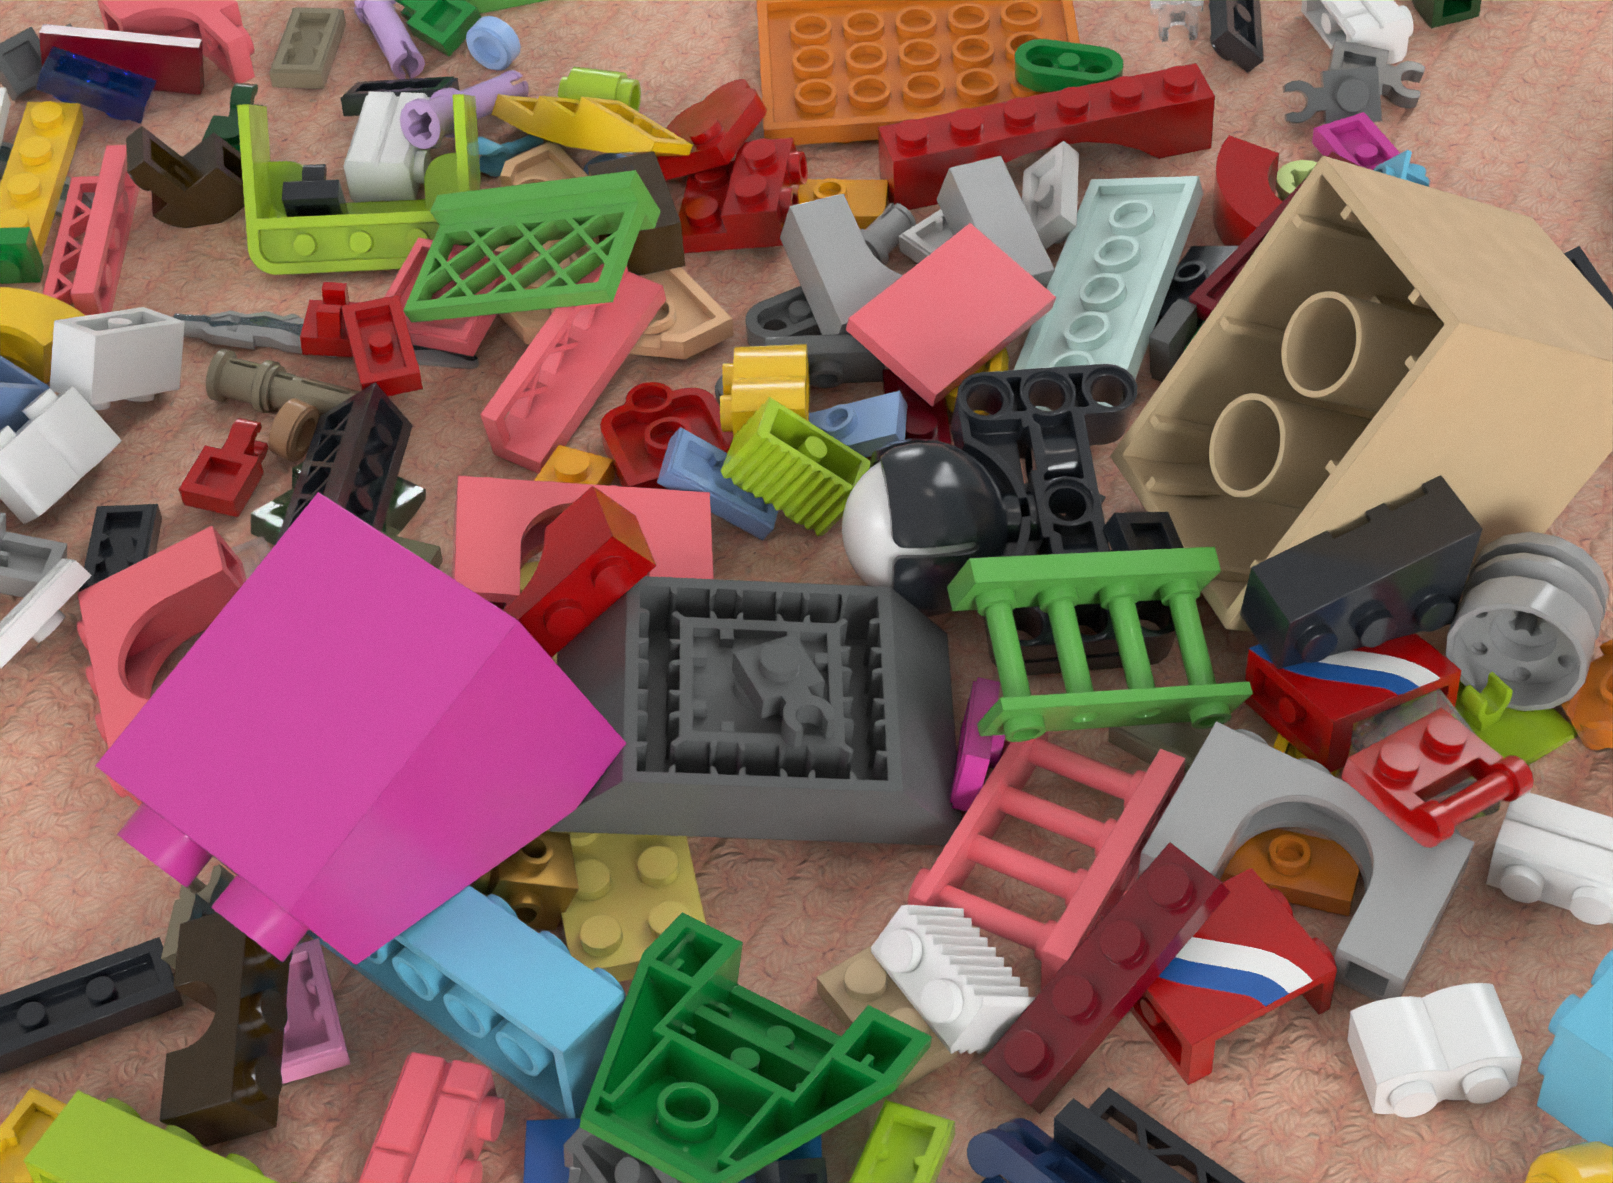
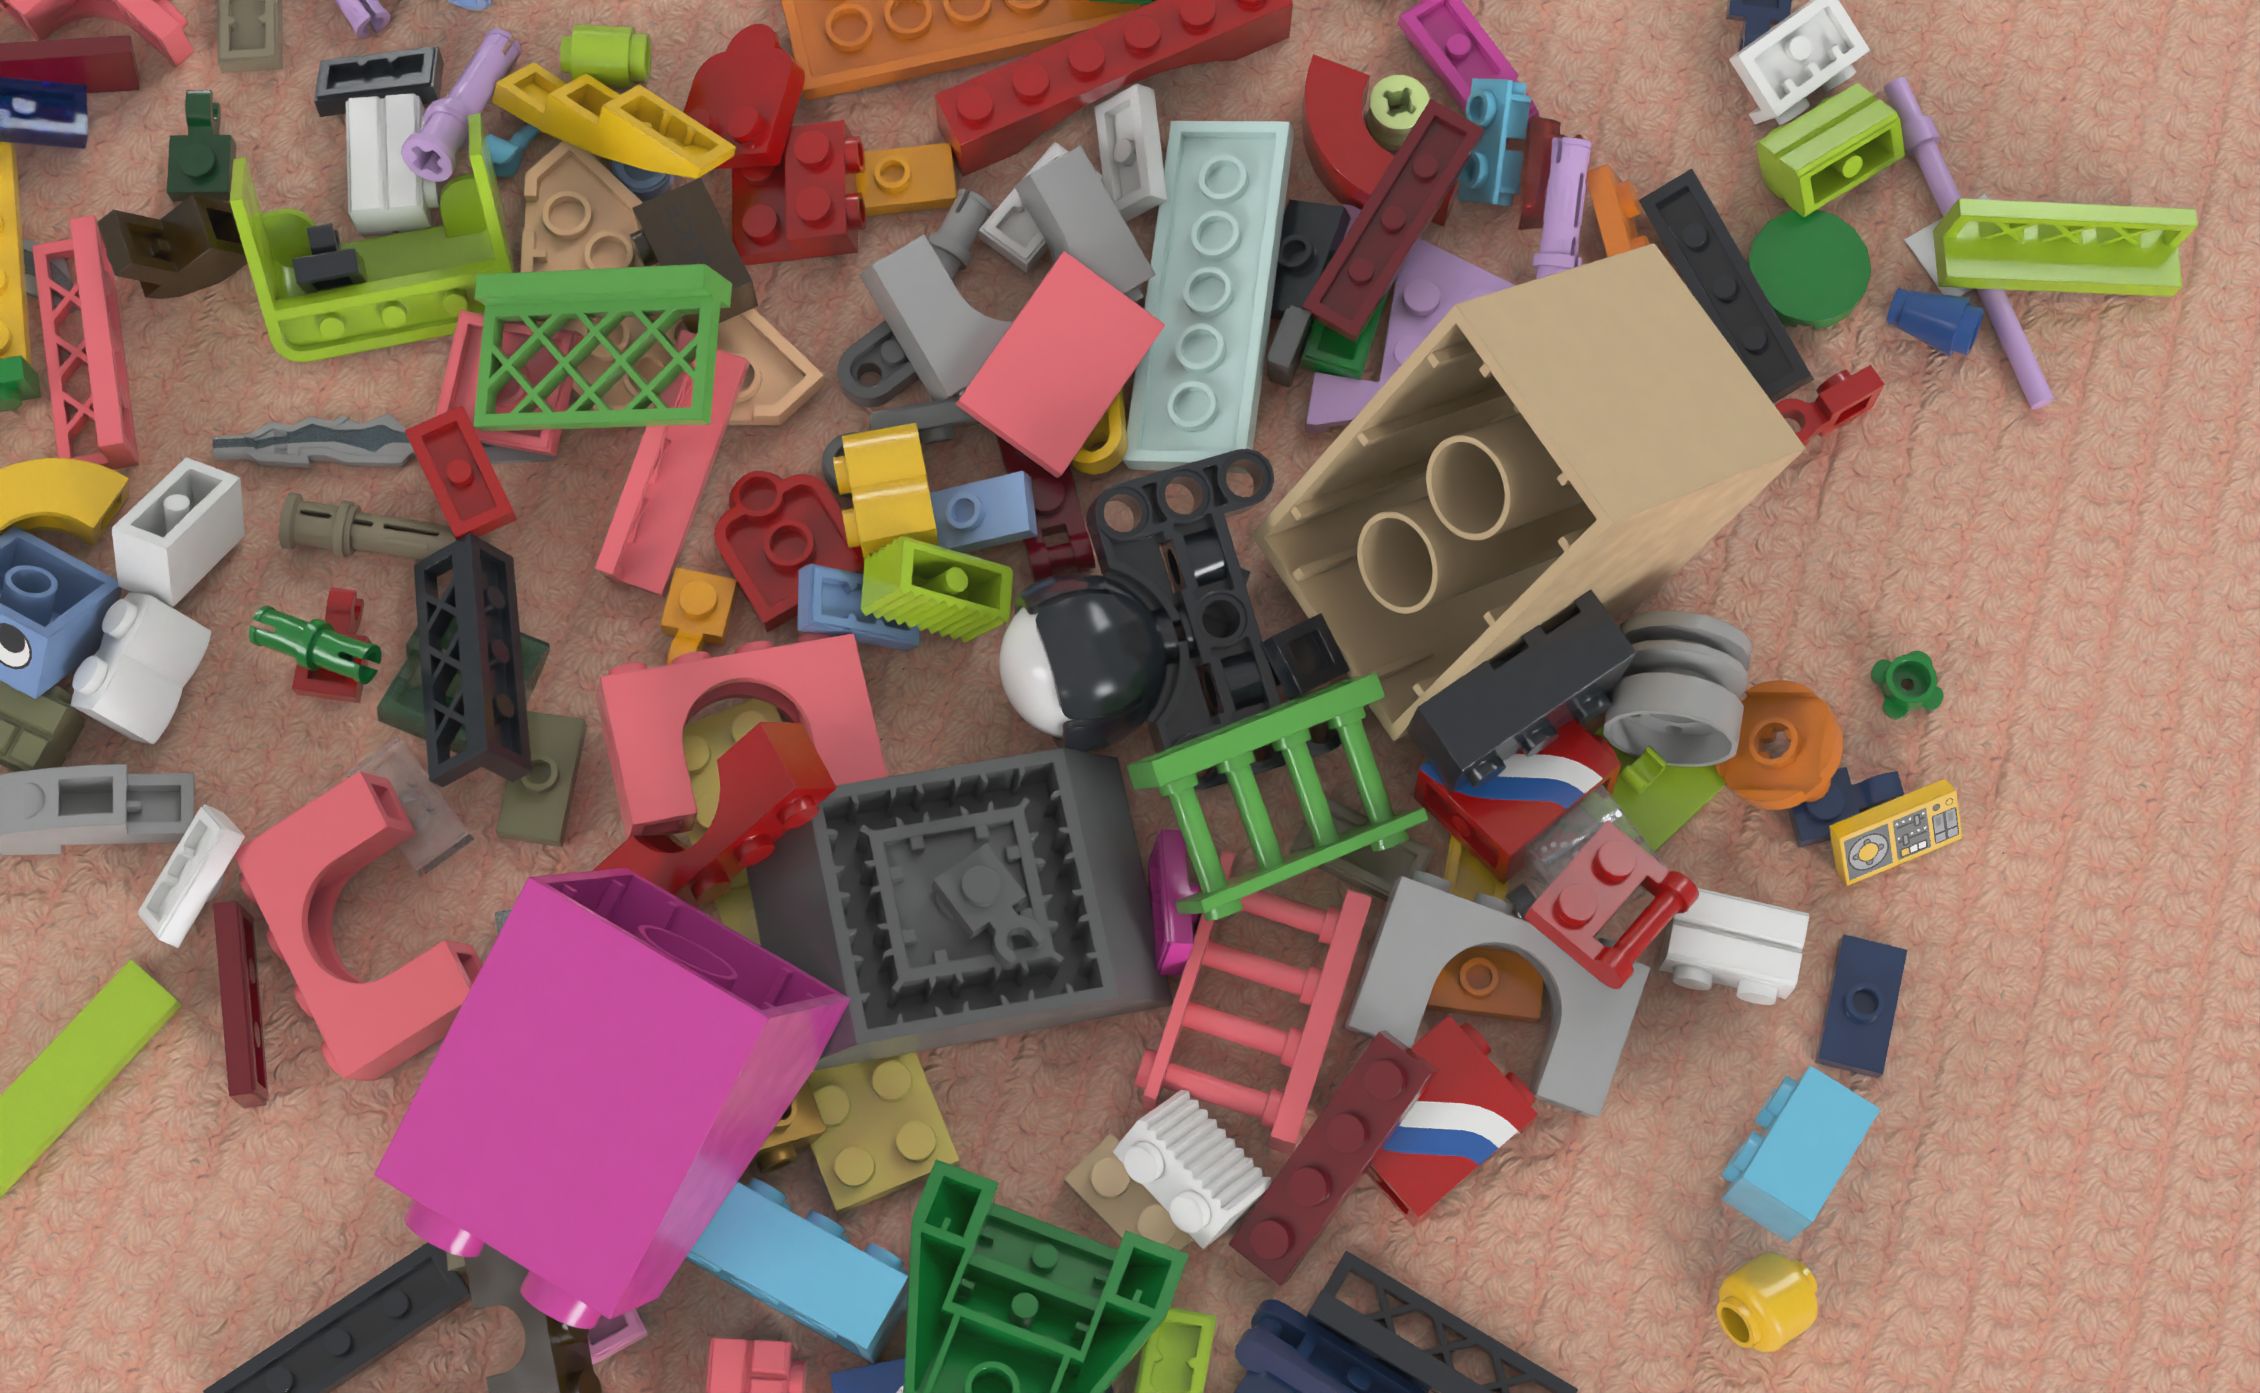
camera: 15 degrees left, 25 degrees up
(42, 726) = (241, 1005): none -> dark red tile
(121, 539) = (252, 771): black plate -> none
(209, 449) = (315, 644): none -> green pin
(293, 429) = (391, 587): medium nougat tile -> none
(324, 325) = (385, 437): red tile -> none
(1434, 1049) = (1630, 1171): white brick -> none

